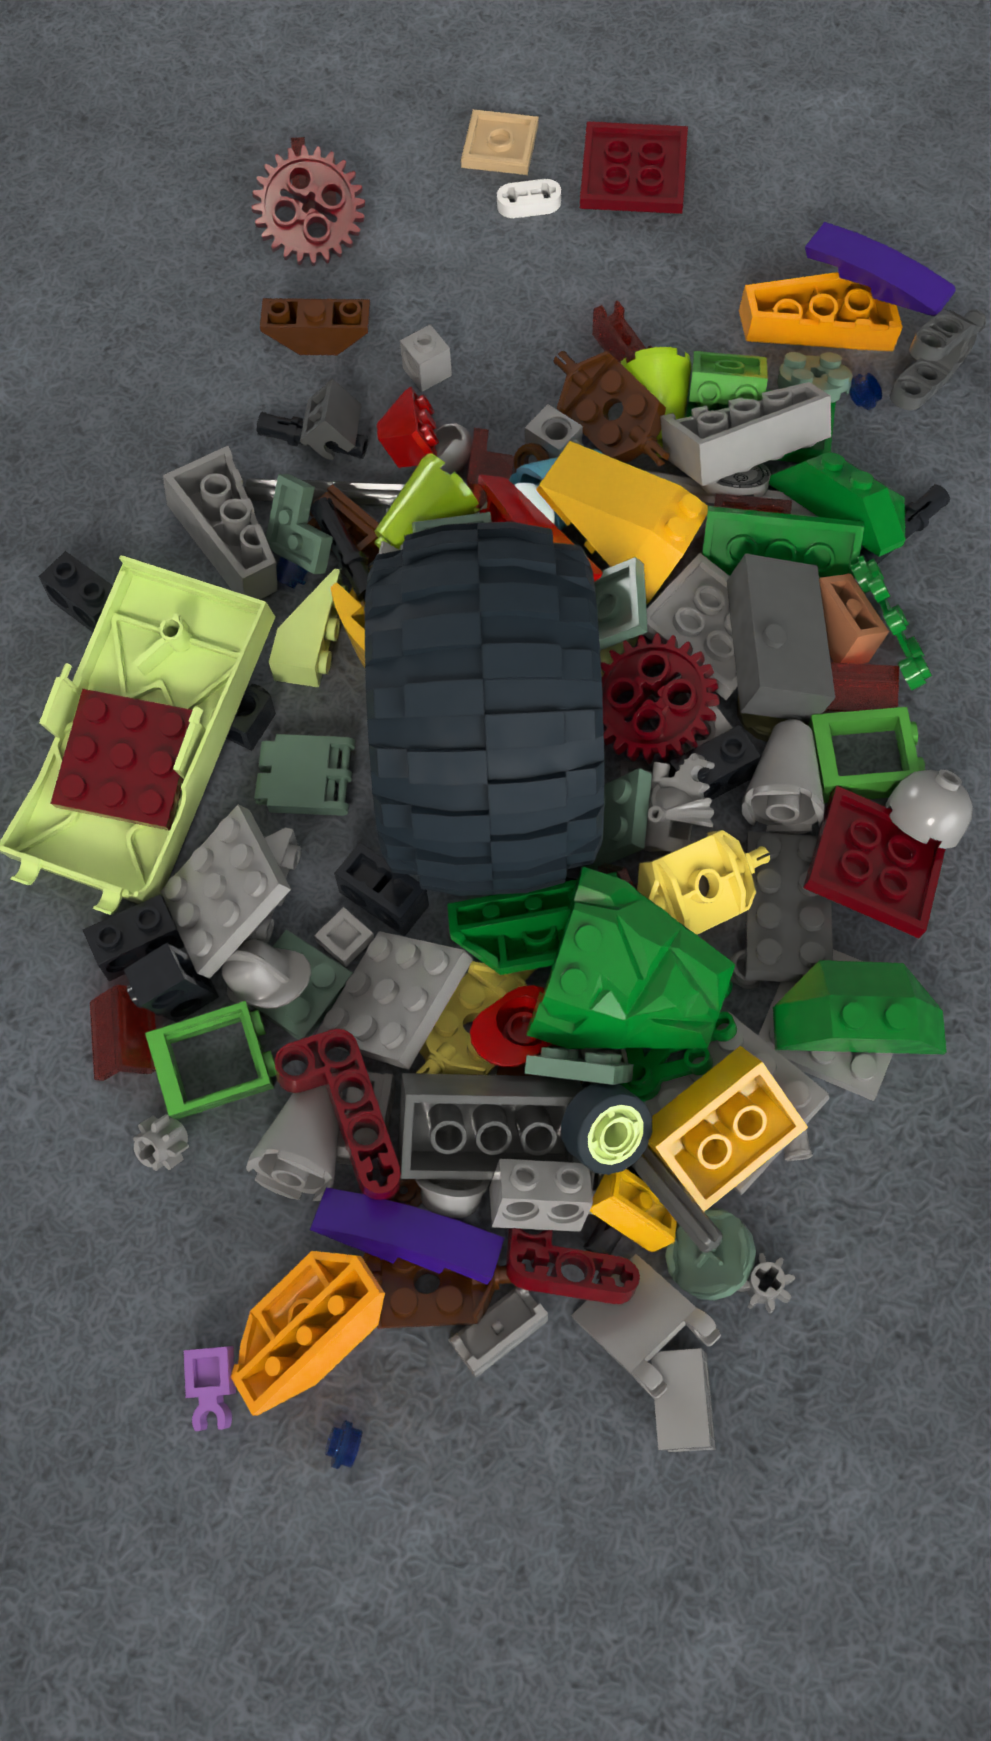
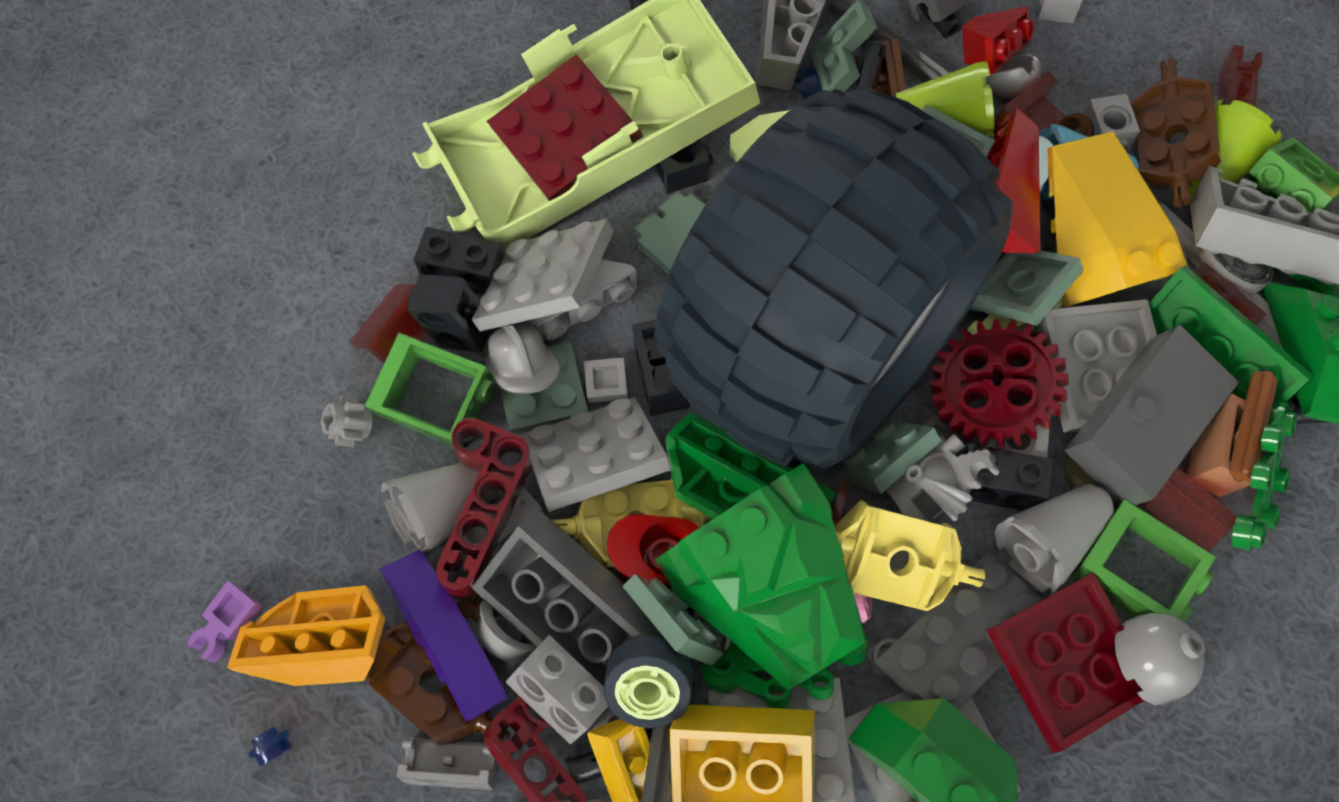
camera: 40 degrees right, 0 degrees up
(855, 590) = (1252, 424): none -> dark orange axle

